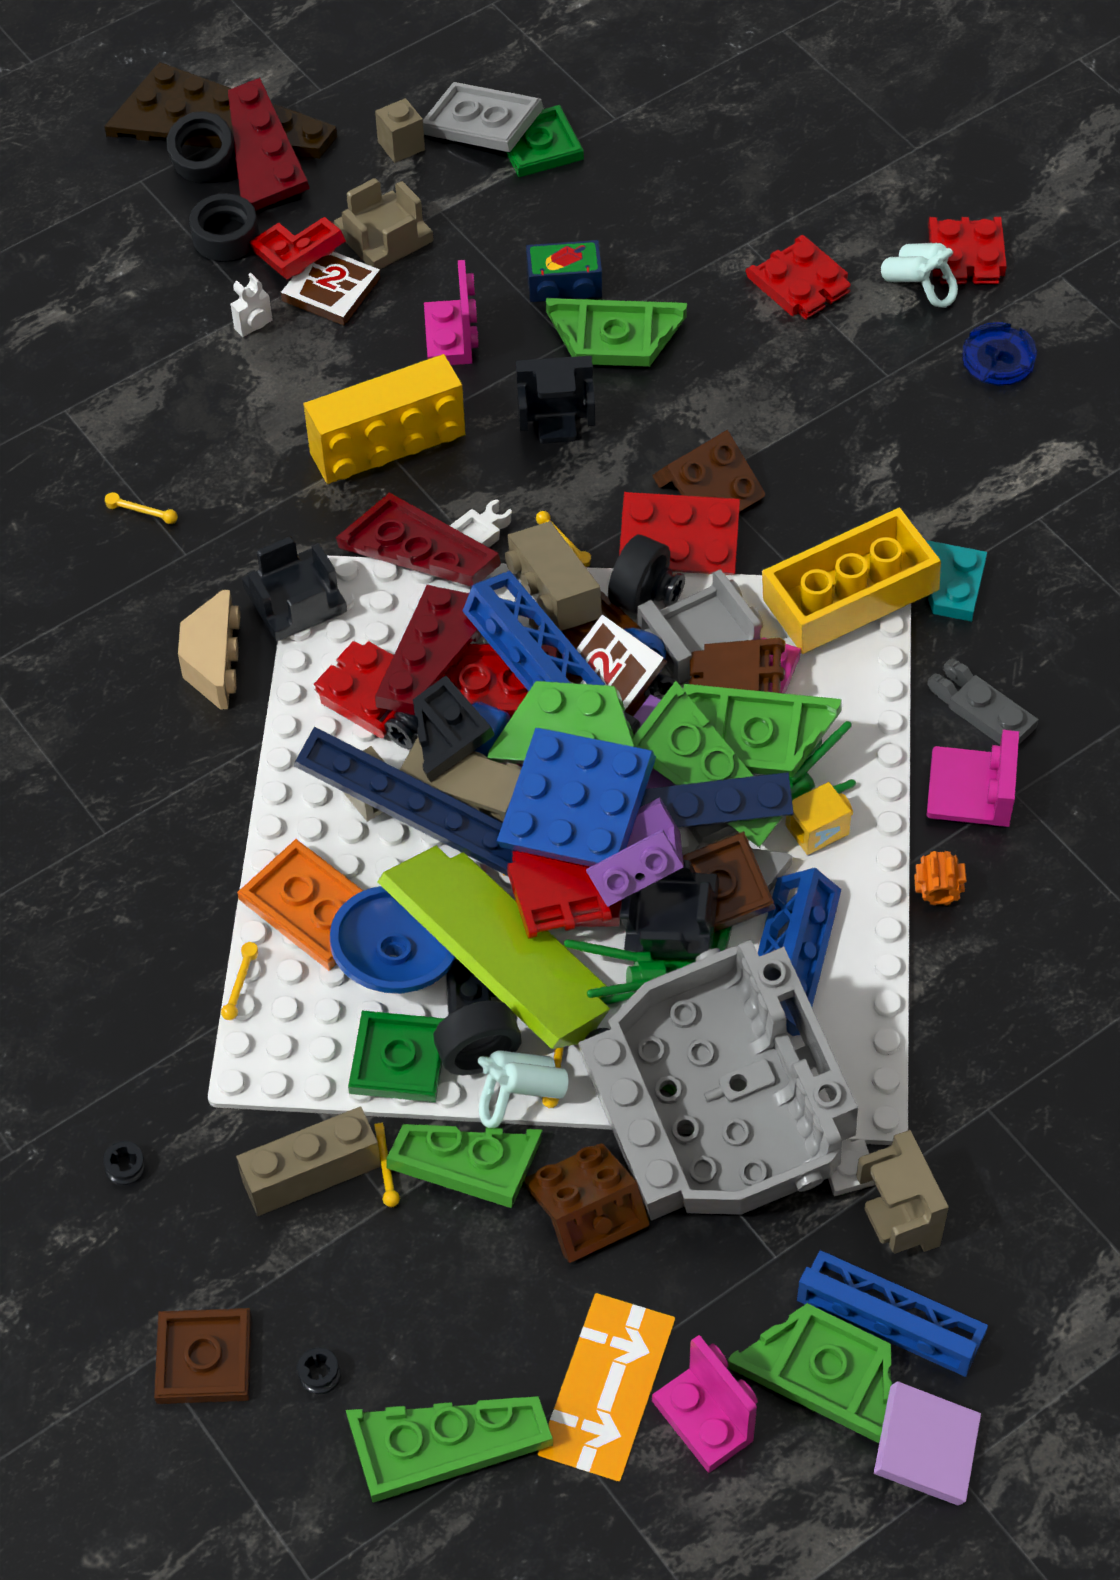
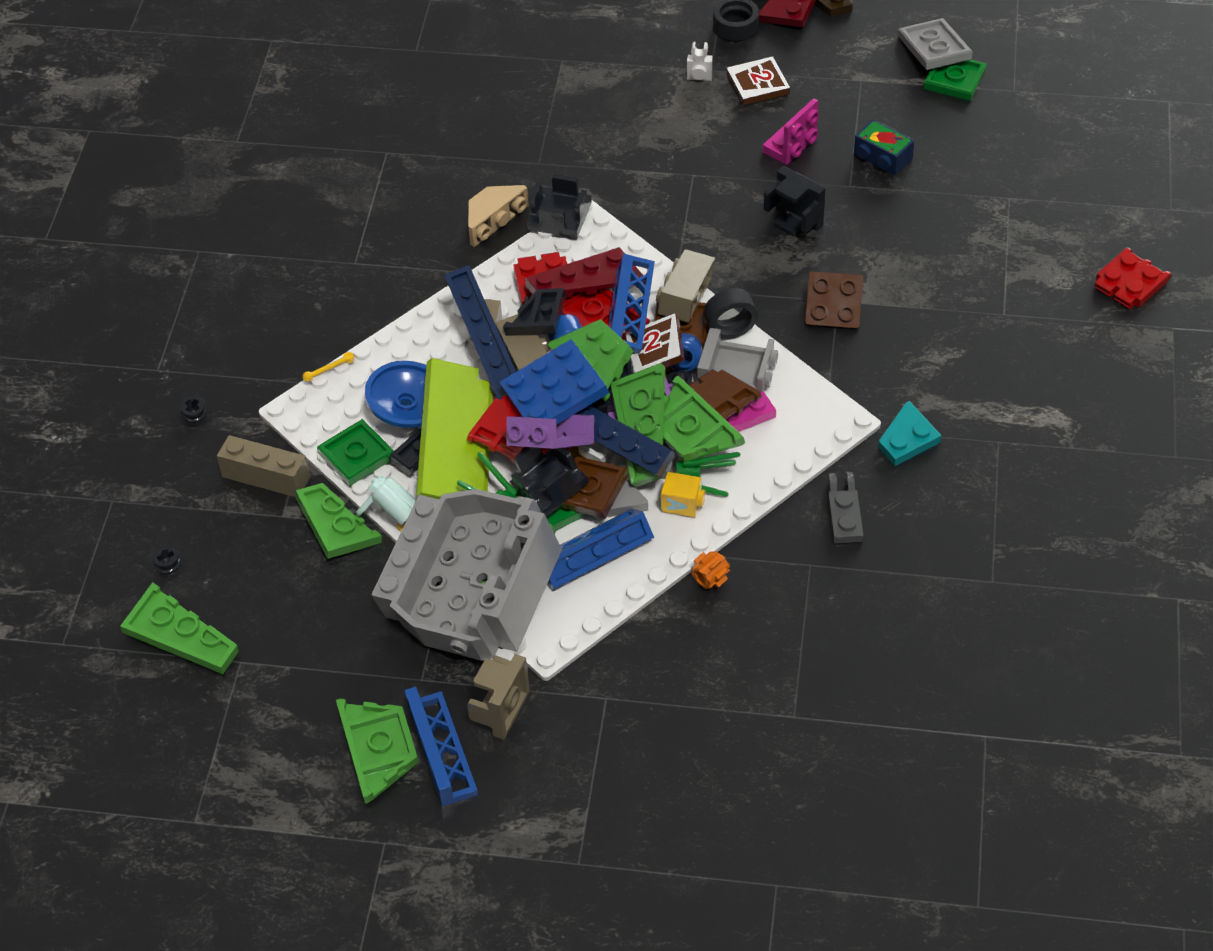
camera: 45 degrees right, 5 degrees down
(113, 501) = (534, 116): yellow hinge -> none
(203, 1356) = (129, 515): reddish brown tile -> none
(293, 253) = (753, 48): red plate -> none
(300, 898) = (398, 343): orange tile -> none
(385, 225) = (817, 66): dark tan panel -> none
(385, 418) = (697, 157): yellow brick -> none
(390, 1197) = (283, 513): yellow hinge -> none
(400, 130) = (881, 24): dark tan brick -> none
(418, 541) = (645, 226): dark red wing -> none
(474, 1033) = (394, 454): black tyre -> none
(484, 527) = (684, 239): white plate -> none
(585, 557) = (728, 261): yellow hinge -> none
(589, 1200) = (353, 582): reddish brown bracket -> none
(607, 1386) = (278, 671): light orange sticker -> none
(615, 330) = (877, 194): bright green wing -> none
(668, 586) = (744, 333): black bush -> none
(695, 528) = (787, 313): red plate -> none
(709, 1406) = (302, 713): dark pink bracket -> none
(800, 278) = (1014, 233): red plate -> none
(851, 580) = (837, 392): yellow brick -> none
(915, 265) = (1076, 265): light aqua piece -> none
(927, 1443) = (379, 813): lavender tile -> none
(974, 783) = (789, 540): dark pink bracket -> none
(999, 354) = (1081, 344): clear blue tile -> none

